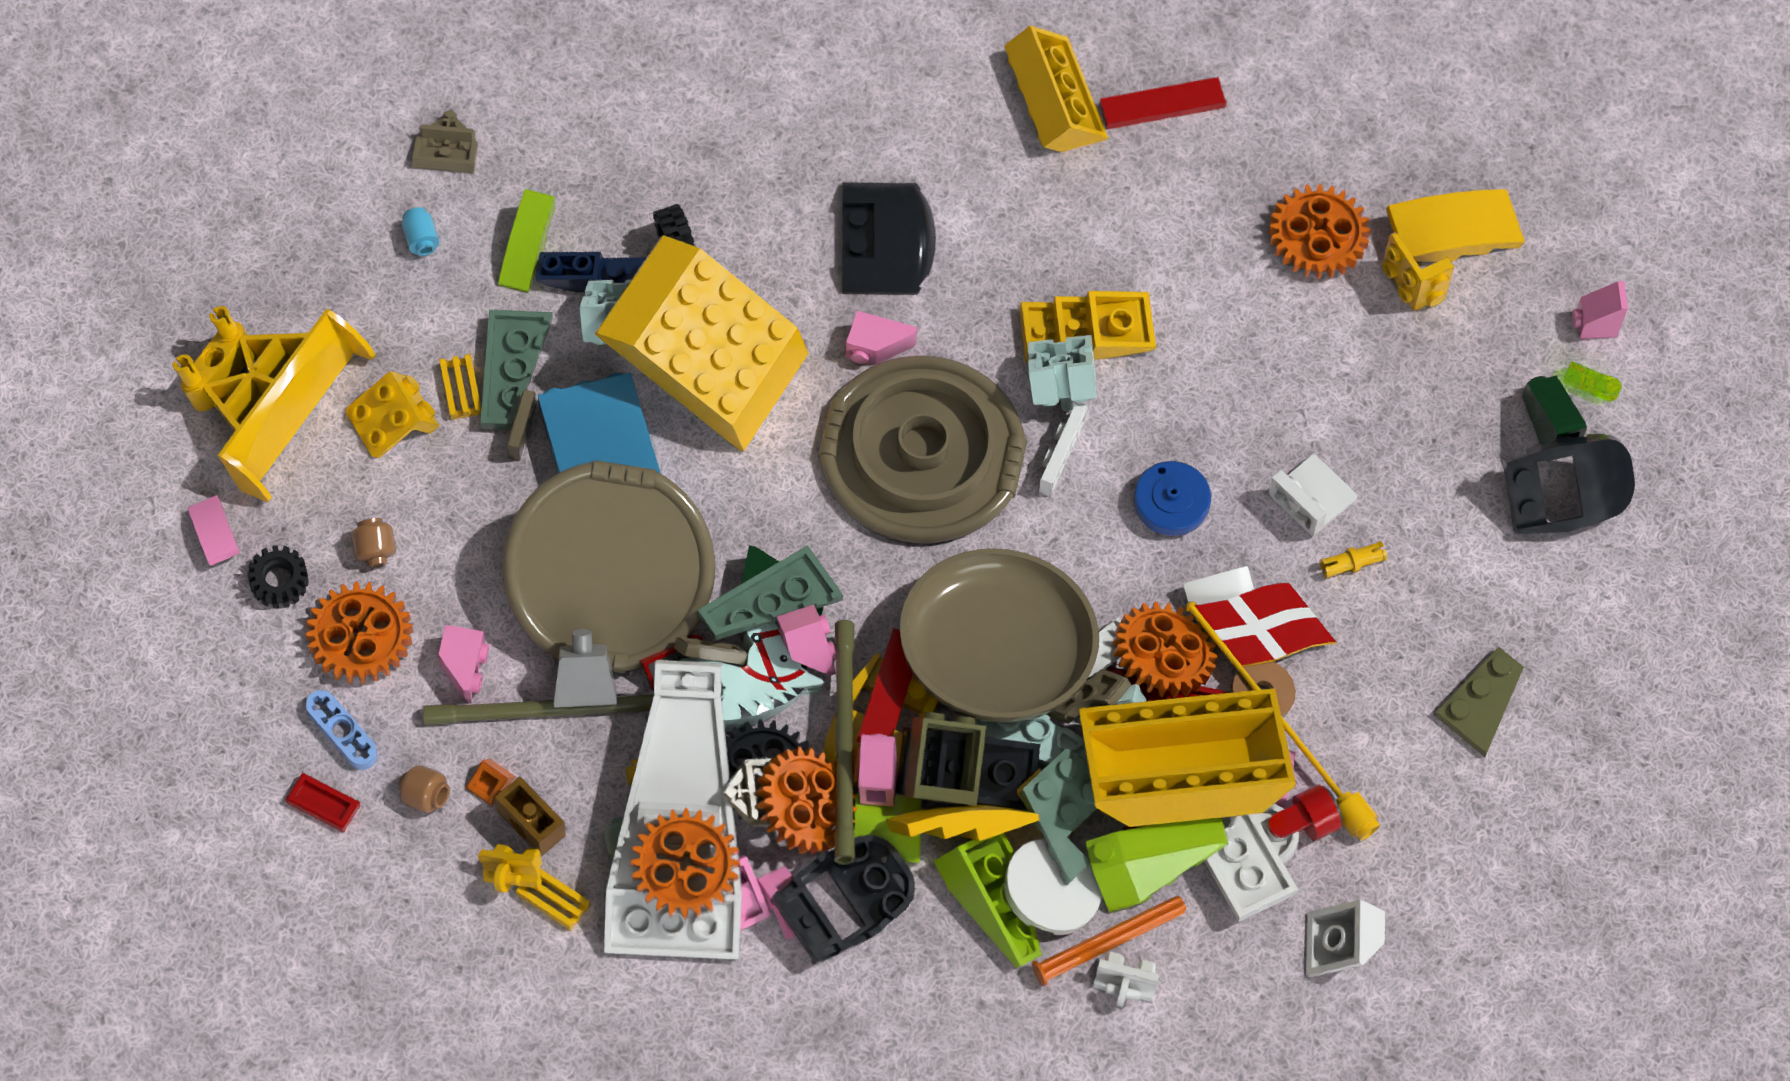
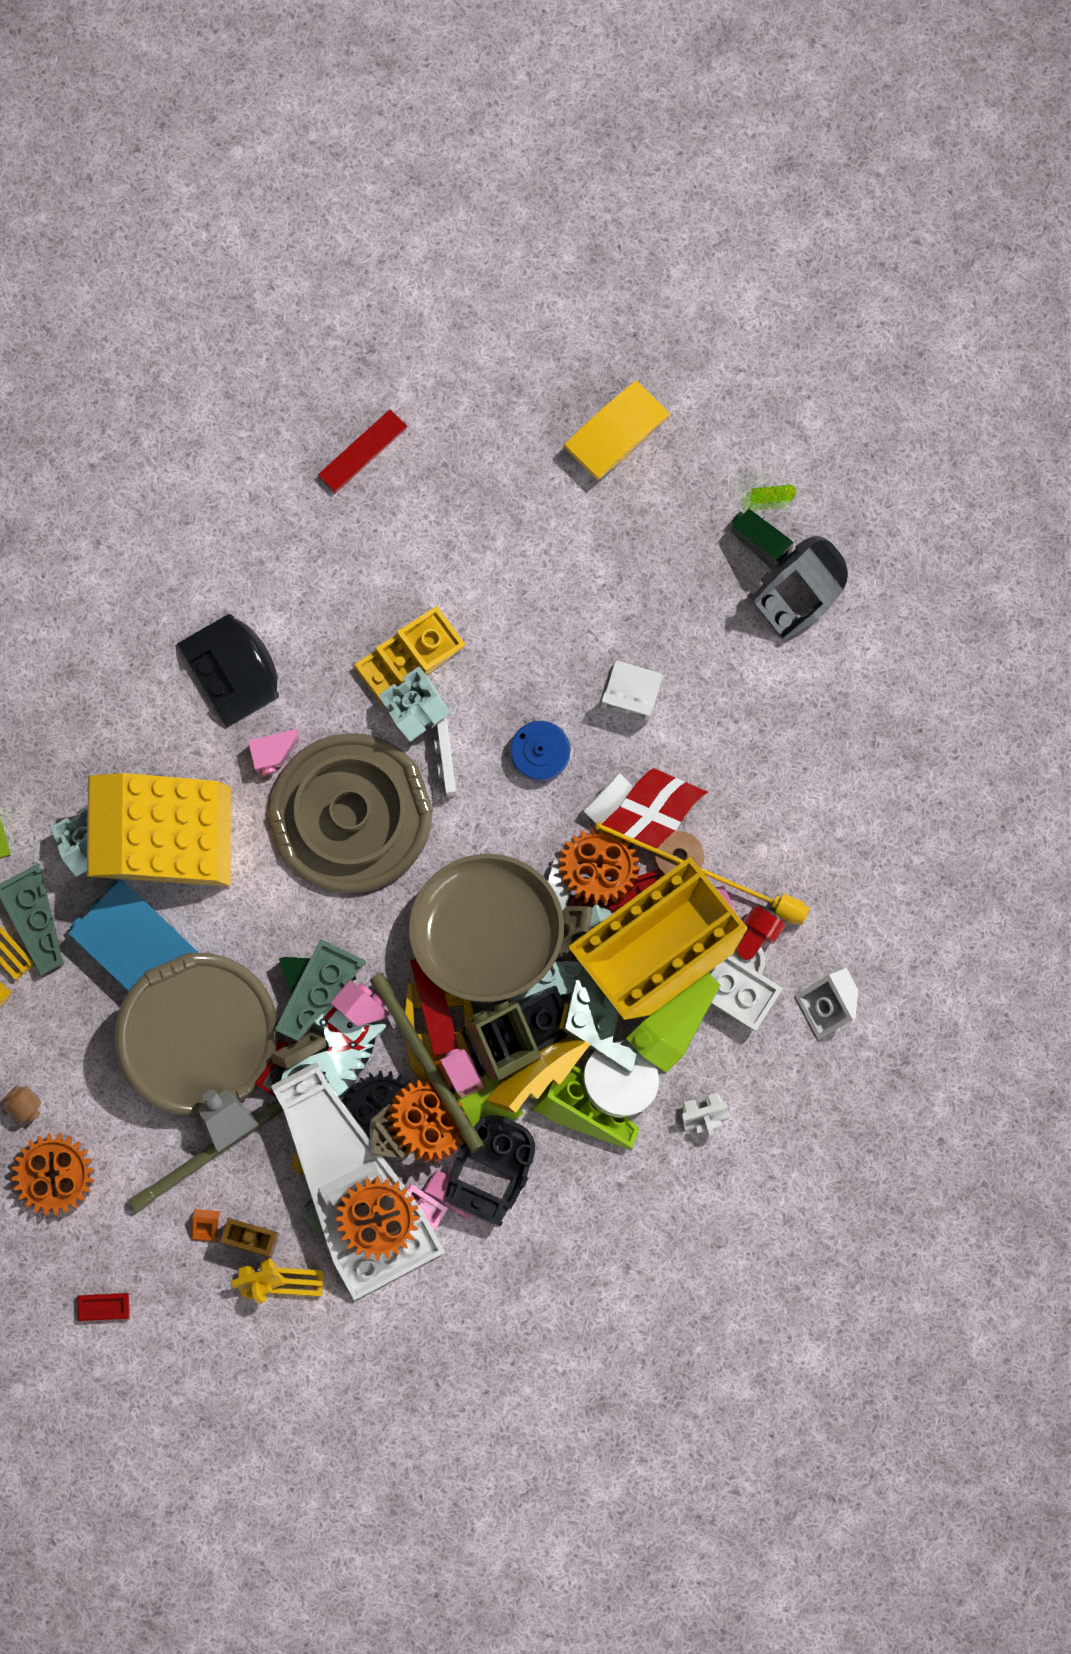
camera: 25 degrees left, 15 degrees up
(349, 752) = (68, 1237): light blue beam -> none
(424, 789) = (166, 1259): medium nougat head -> none
(460, 659) = (133, 1152): bright pink slope -> none
(521, 424) = (68, 959): dark tan tile -> none
(574, 269) = (40, 818): dark blue slope -> none
(673, 224) = (88, 756): black tyre -> none
(1054, 90) = (283, 486): yellow slope -> none
(1108, 939) = (677, 1092): orange axle -> none
(1319, 231) = (519, 509): orange gear -> none
(1353, 559) = (685, 723): yellow pin -> none
(1416, 285) = (613, 496): yellow bracket -> none
(1482, 700) = (826, 775): olive wing -> none
(1601, 312) = (752, 441): bright pink slope -> none

